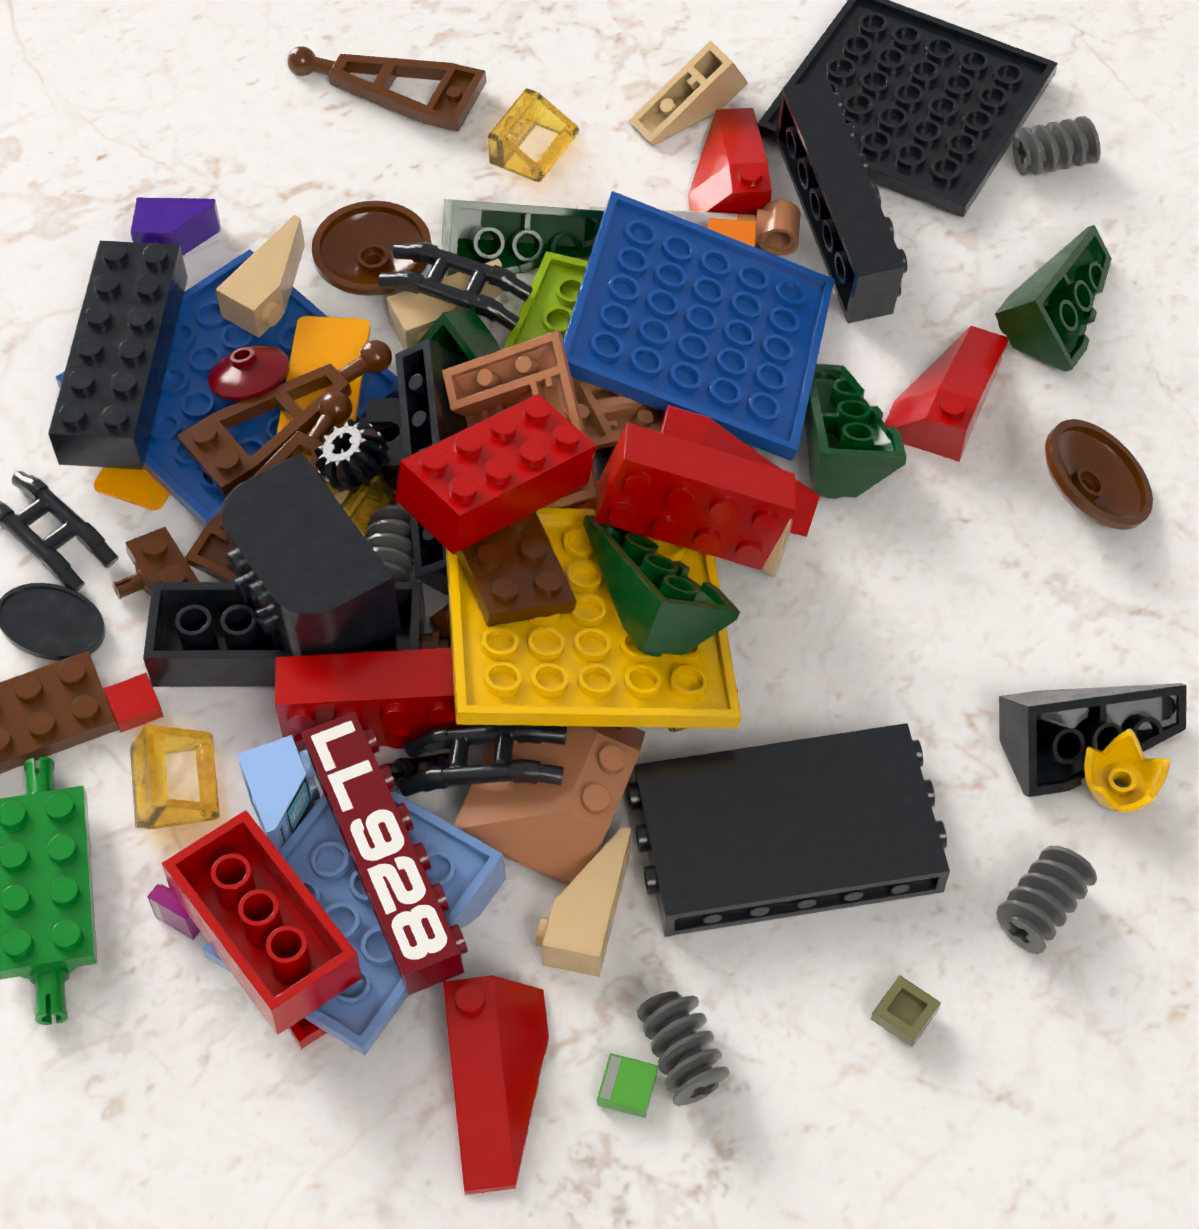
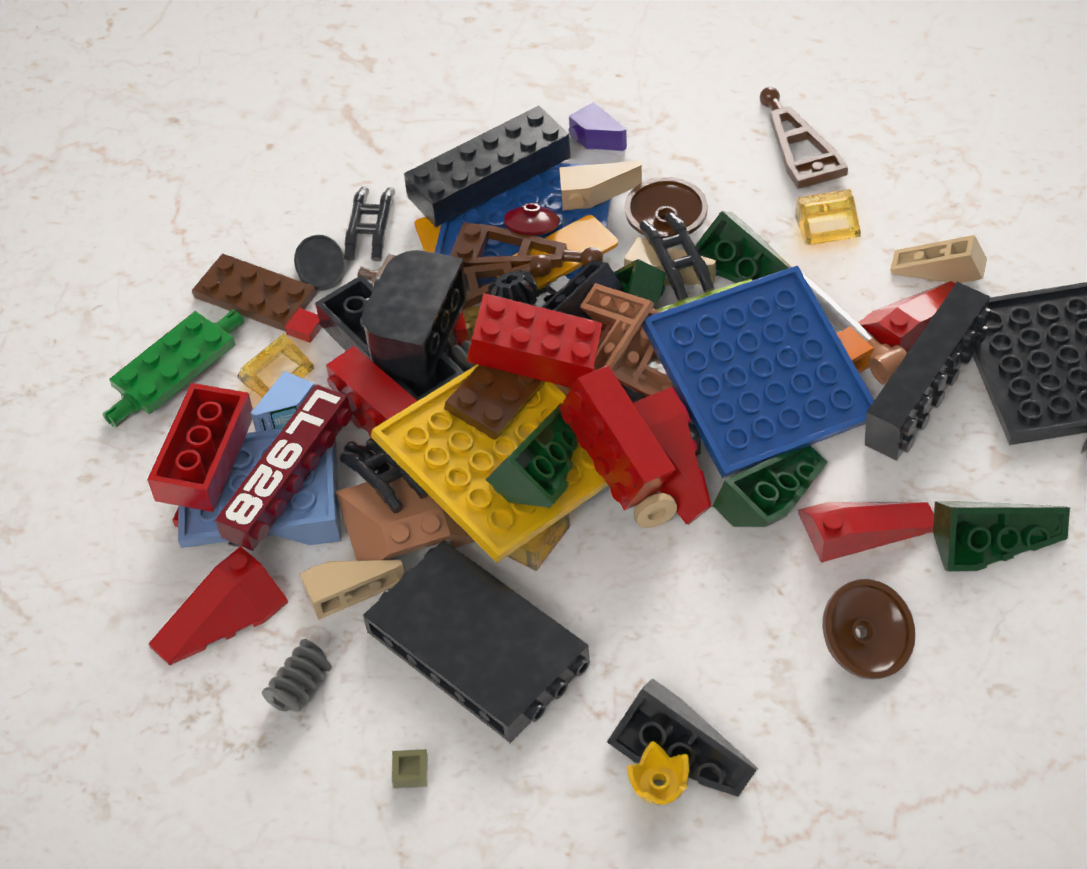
camera: 55 degrees right, 5 degrees down
(627, 1085) = (260, 671): bright green tile -> none
(1044, 897) = (538, 789): dark grey piece -> none

